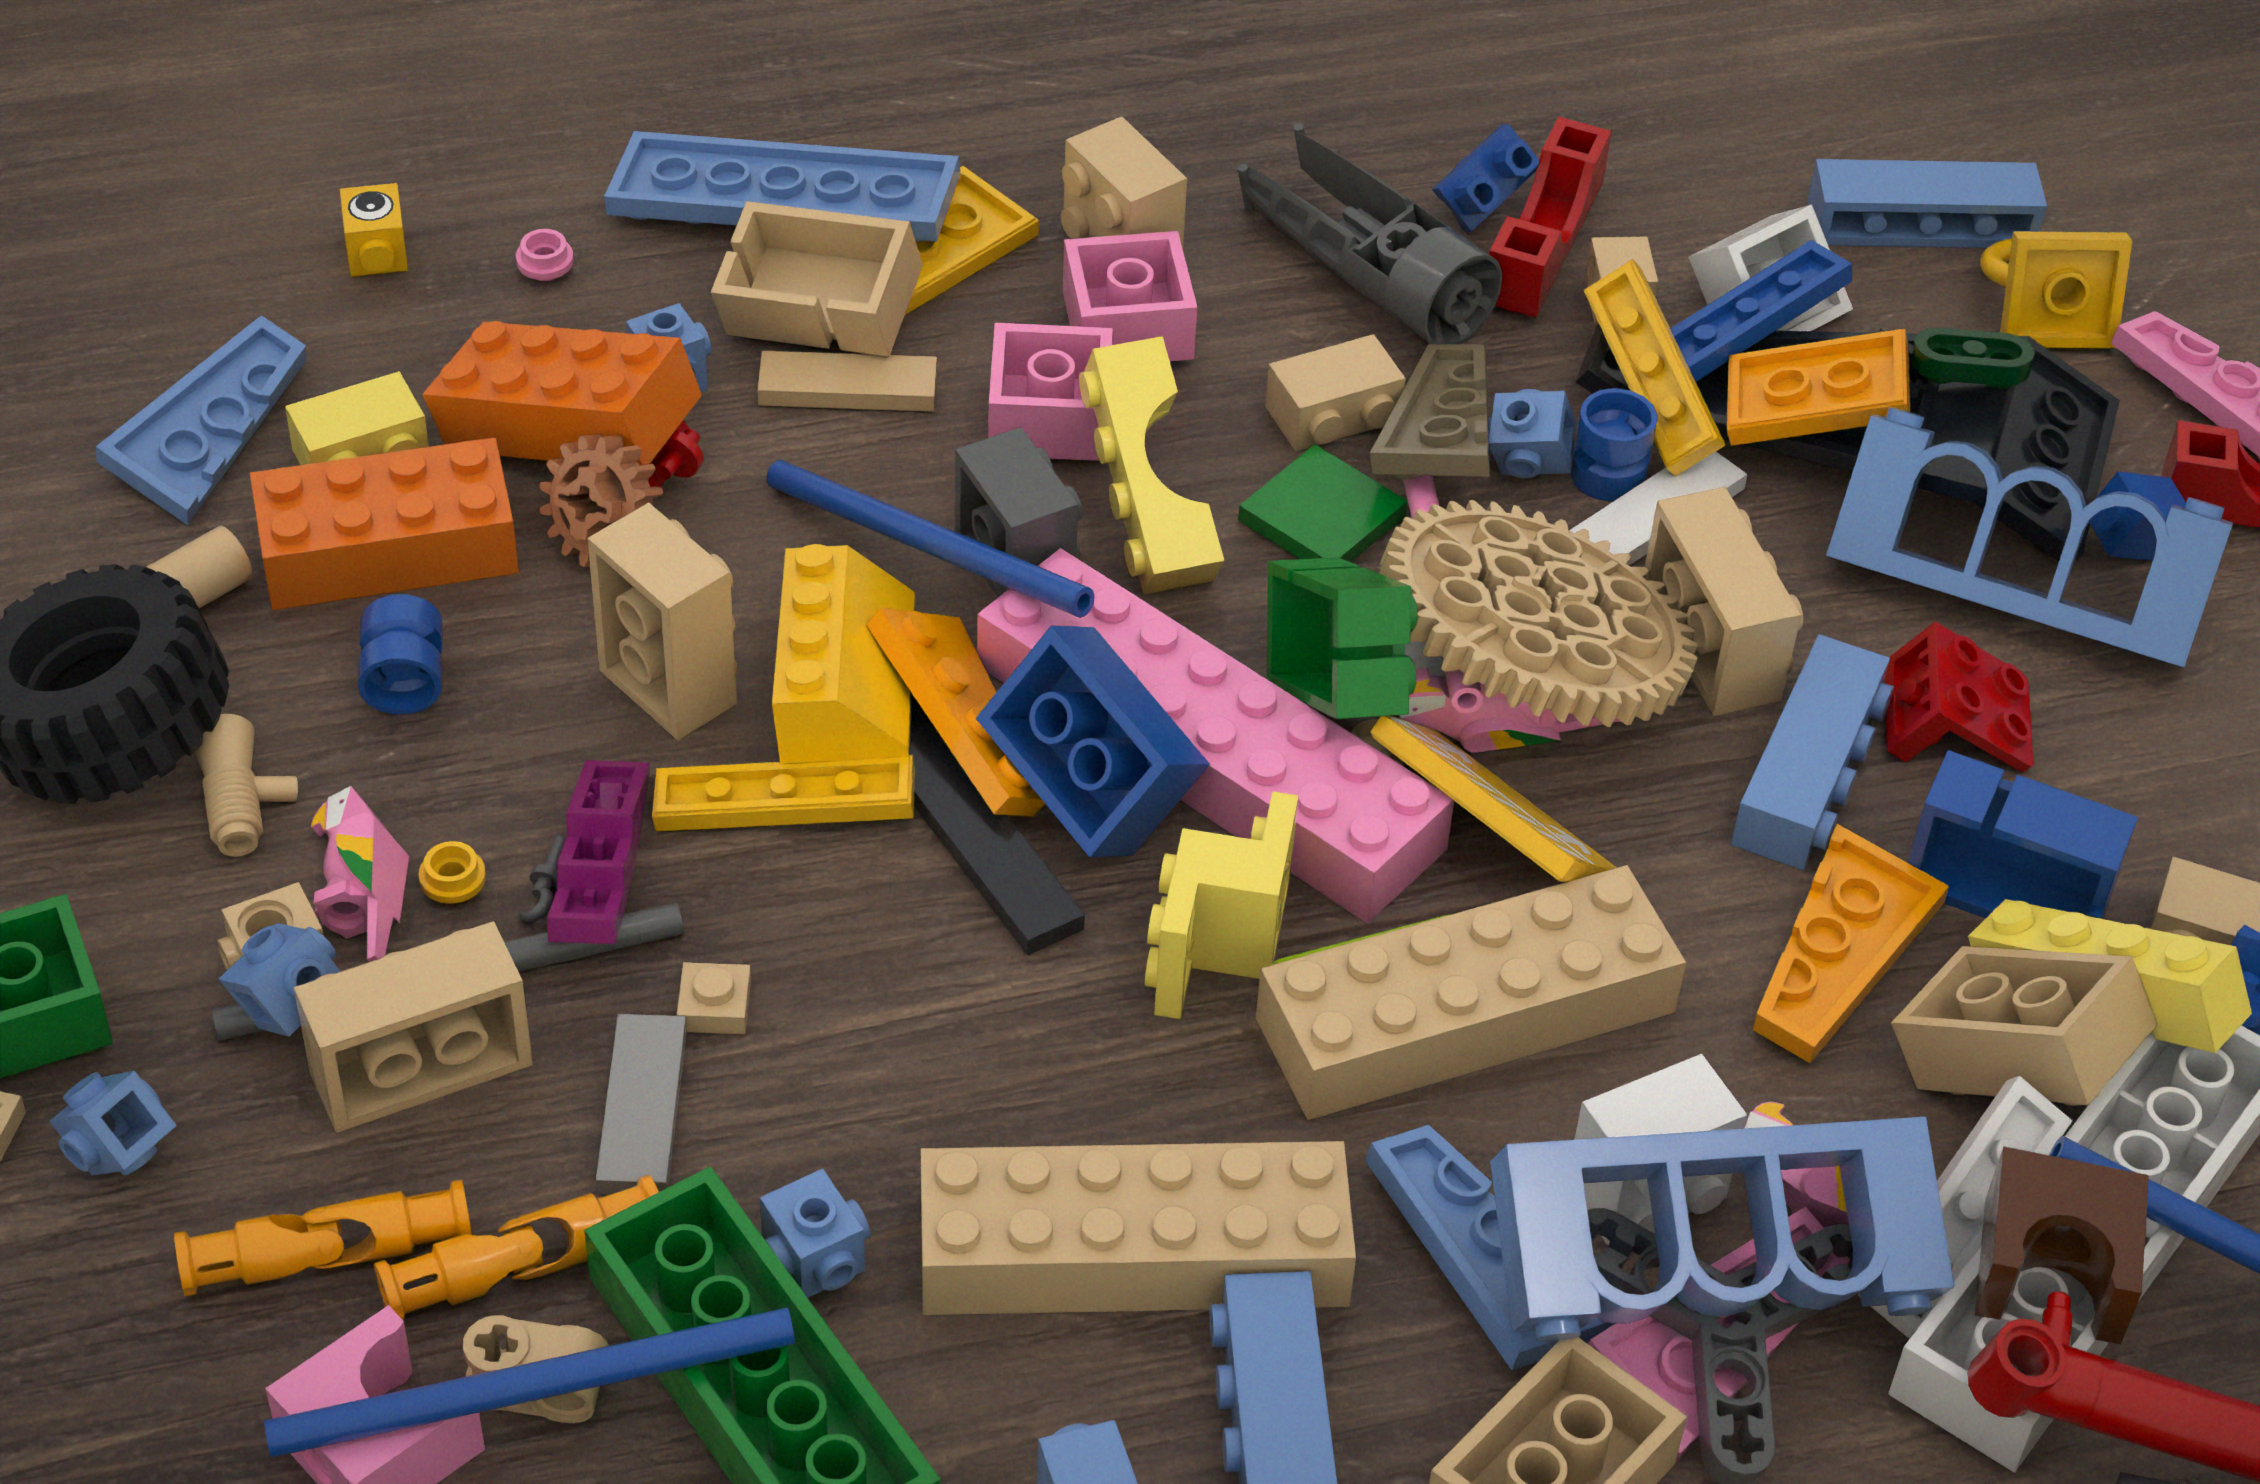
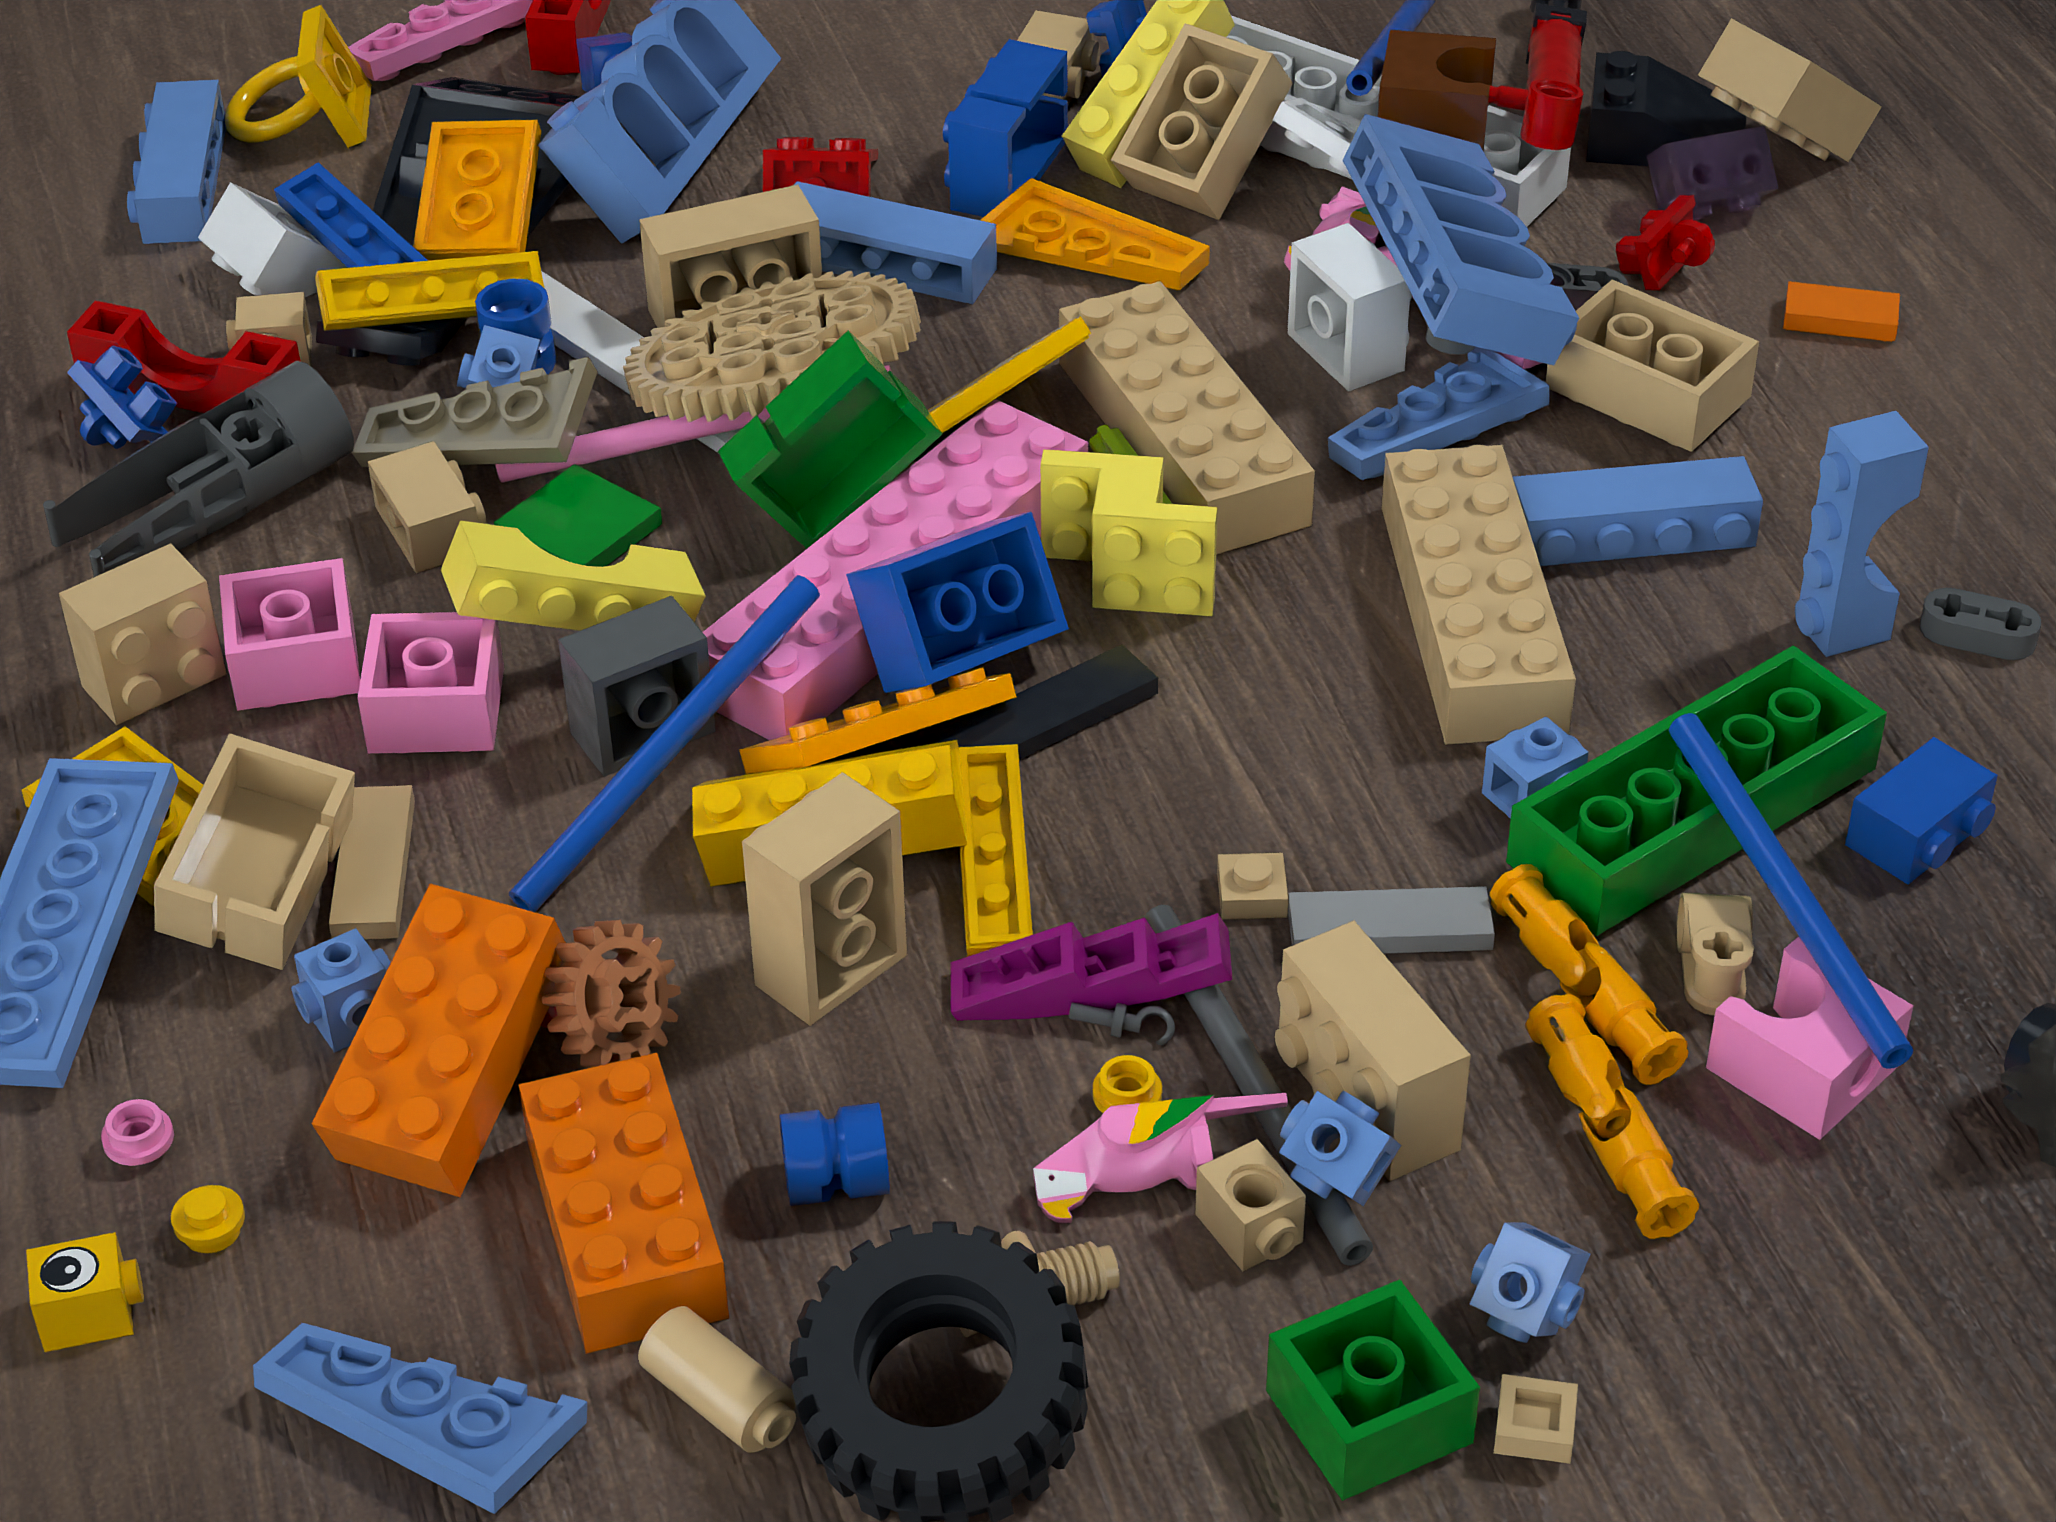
camera: 90 degrees left, 5 degrees down
(357, 421) = (463, 1251): light yellow brick -> none
(445, 301) = (208, 1218): none -> yellow plate
(1972, 357) = (457, 93): dark green plate -> none

